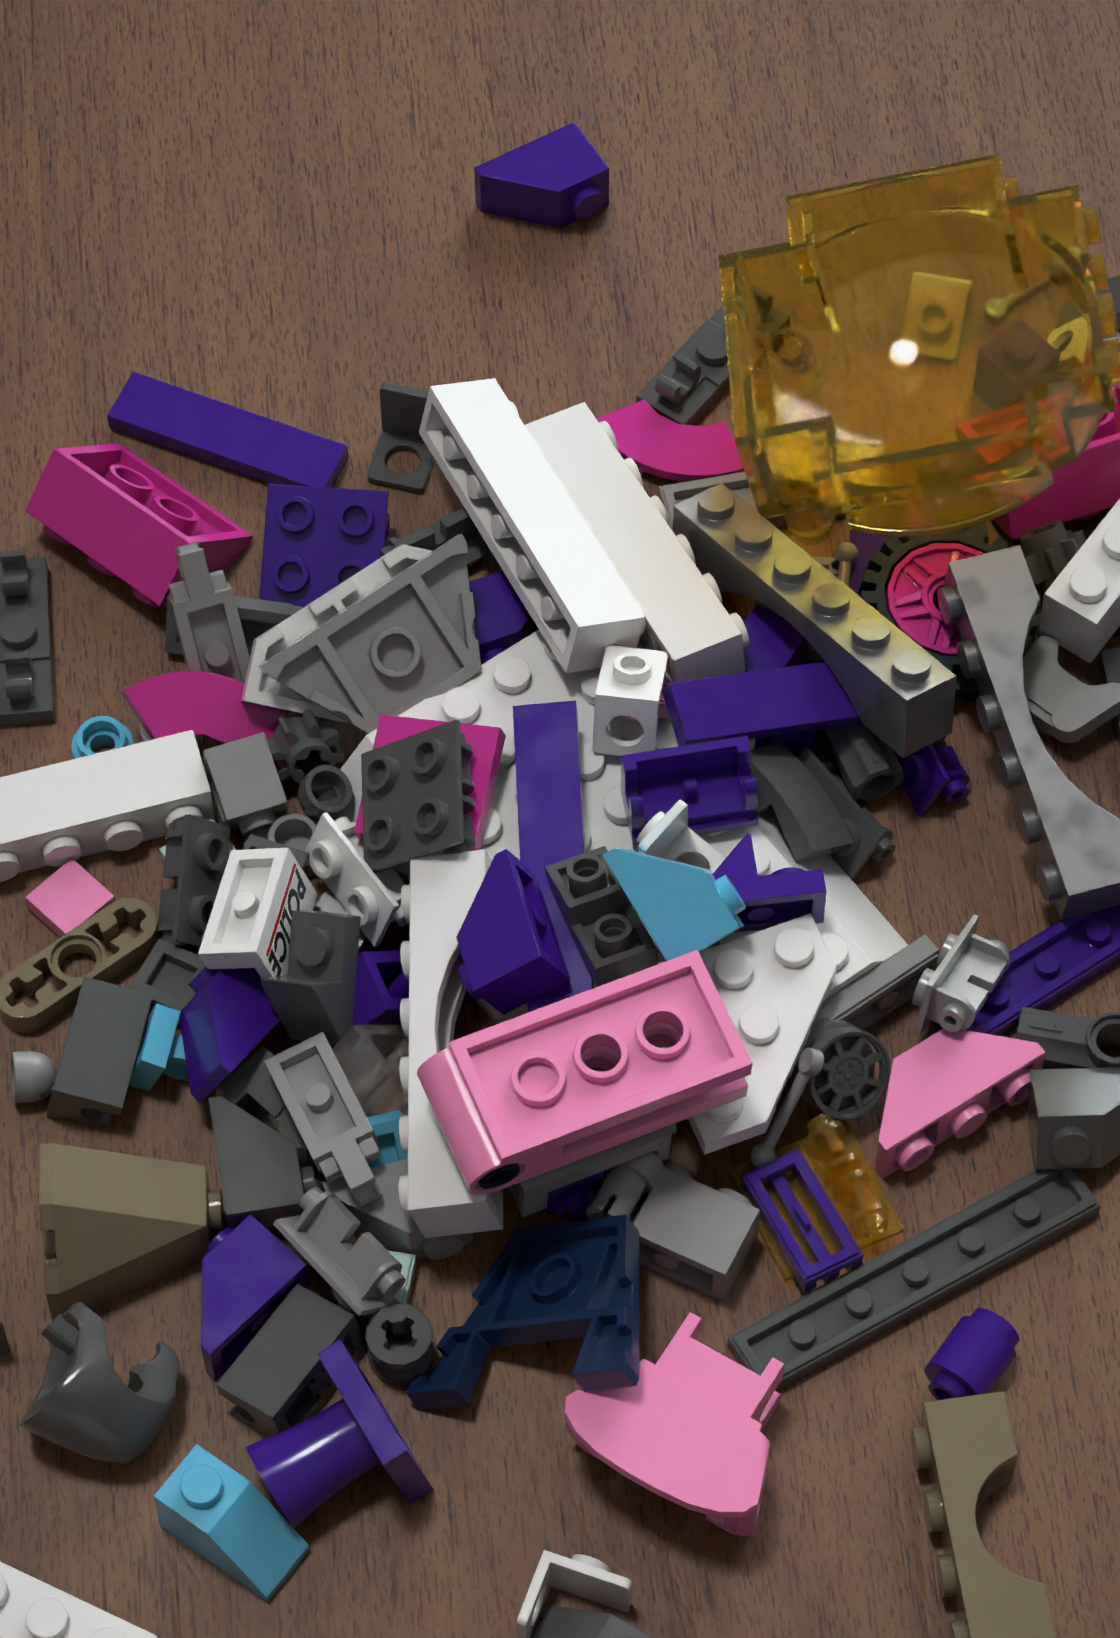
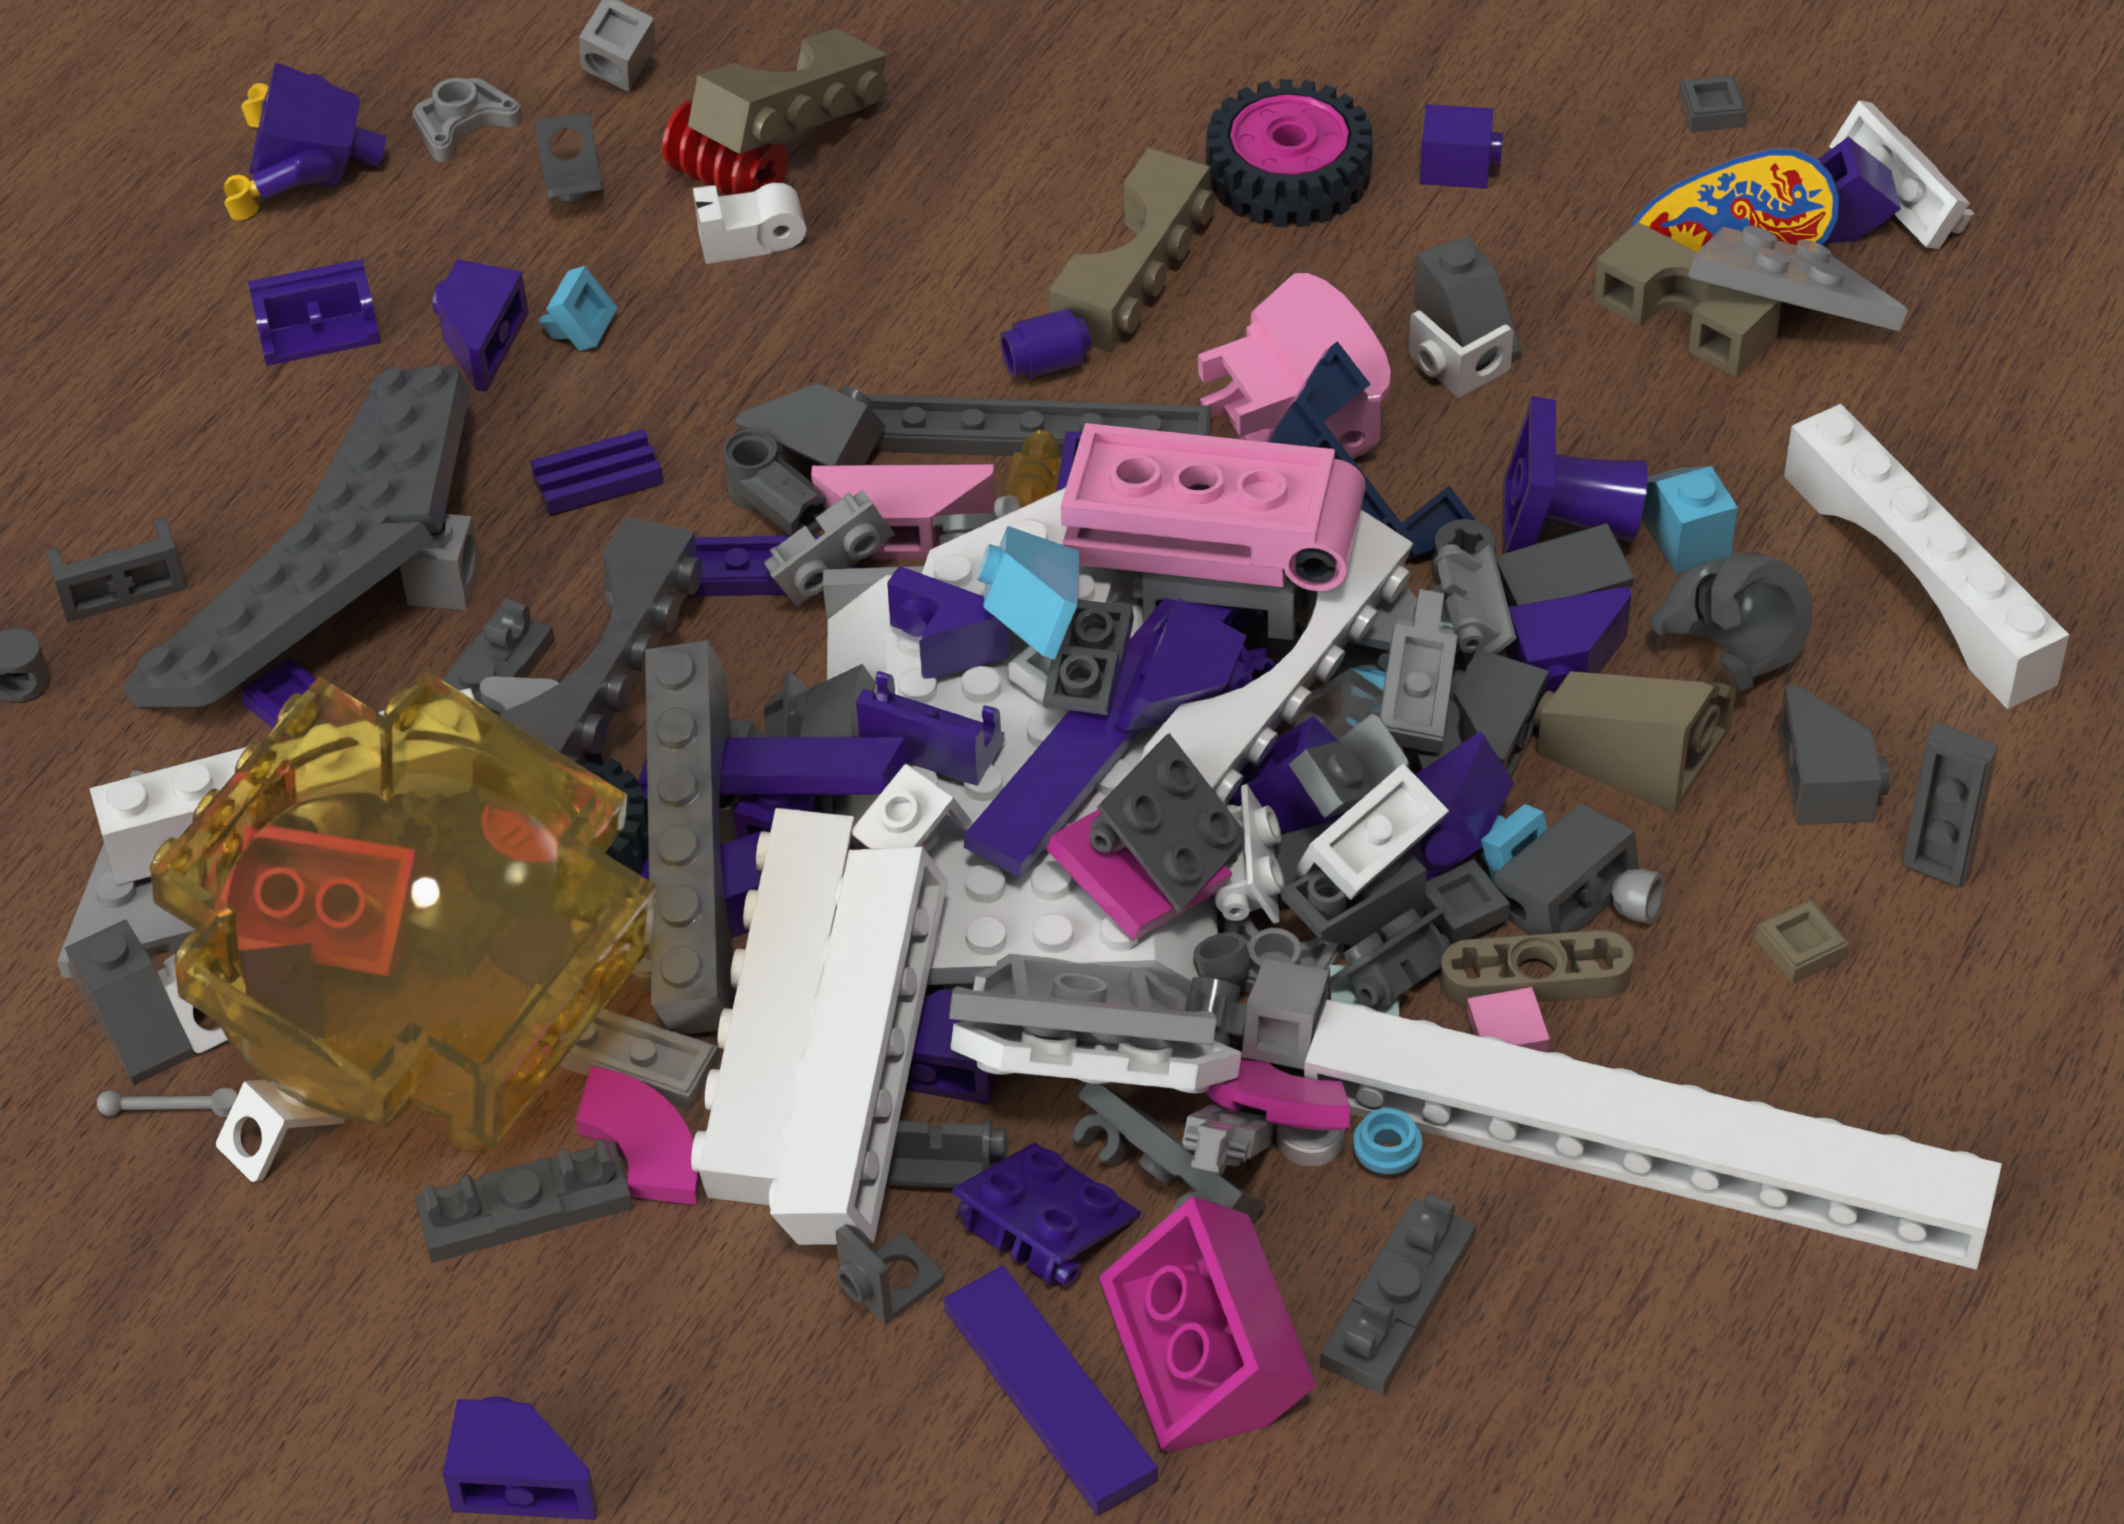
camera: 145 degrees left, 10 degrees down
(671, 838) = (987, 674): white bracket -> none

